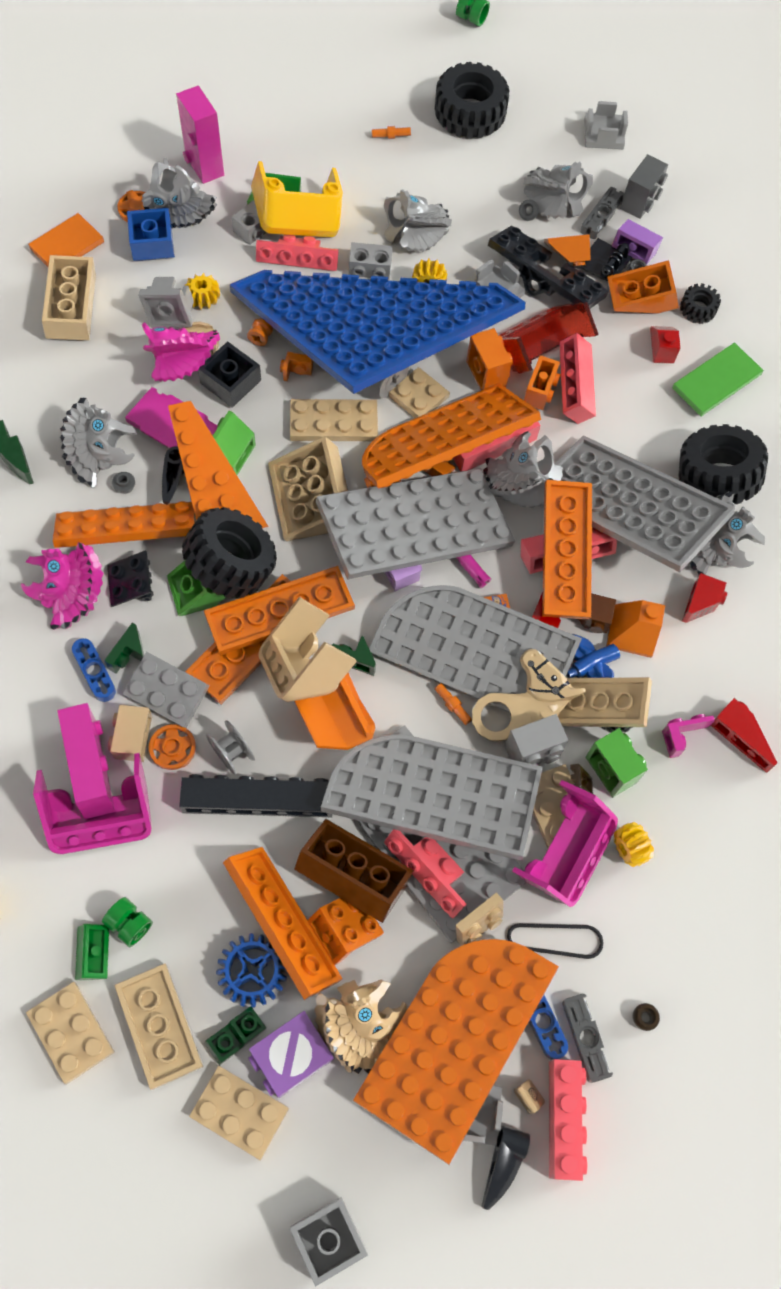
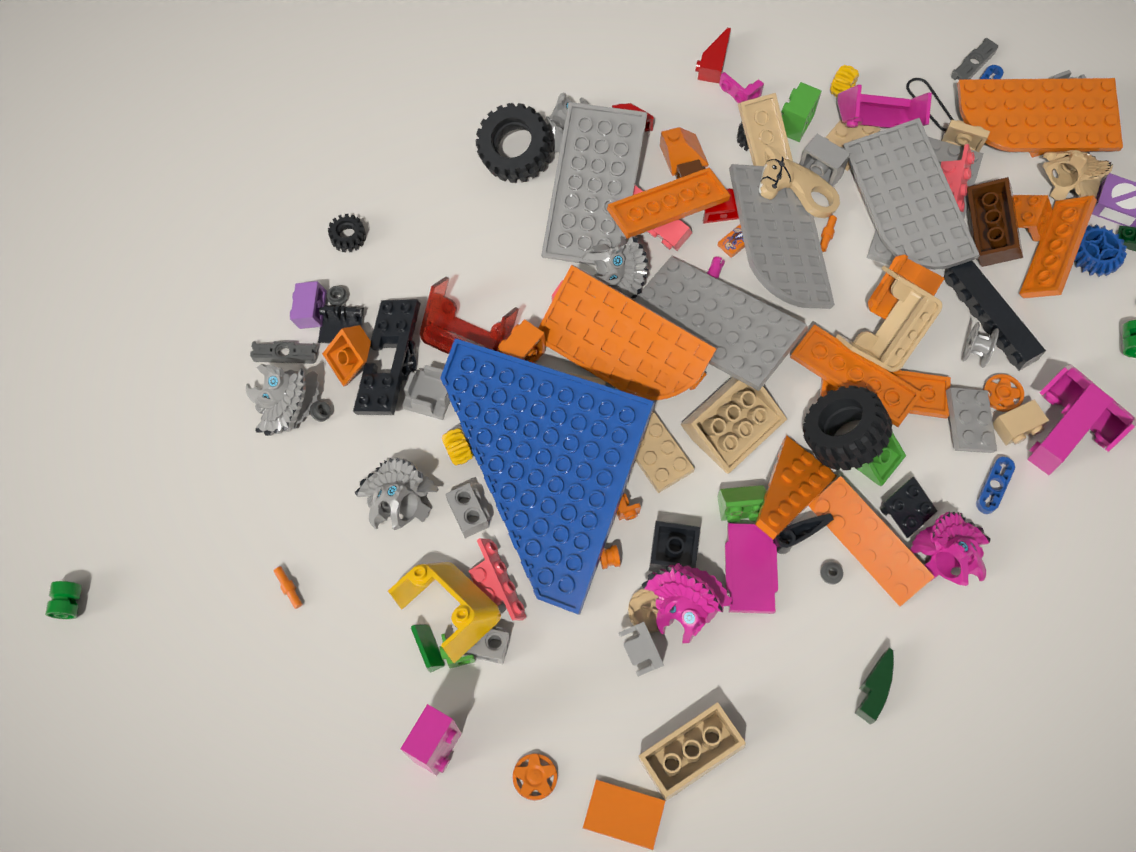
camera: 115 degrees left, 0 degrees up
(91, 441) = (820, 619): light grey piece -> none
(128, 645) = (963, 470): dark green slope -> none
(150, 234) = (568, 726): blue brick -> none
(178, 194) = (513, 728): light grey piece -> none
(203, 290) = (592, 643): yellow gear -> none
(363, 656) = (845, 308): dark green slope -> none
(477, 83) = (190, 508): black tyre -> none
(506, 1160) = (1077, 67): black piece -> none
(529, 1097) = (1034, 70): tan slope -> none
(541, 382) = (507, 300): orange brick -> none
(565, 1120) = (1031, 47): coral brick -> none
(577, 378) = (491, 281): coral brick -> none
(581, 778) = (829, 124): dark brown tile -> none
(593, 661) = (735, 155): blue plant -> none
(604, 127) = (172, 396): light grey panel -> none
(644, 186) = (242, 322): dark grey brick -> none
(644, 289) = (362, 276): orange slope -> none
(653, 1014) = (937, 37): dark brown plate -> none
(664, 344) = (405, 240): red slope -> none
(717, 379) = (420, 189): bright green tile -> none

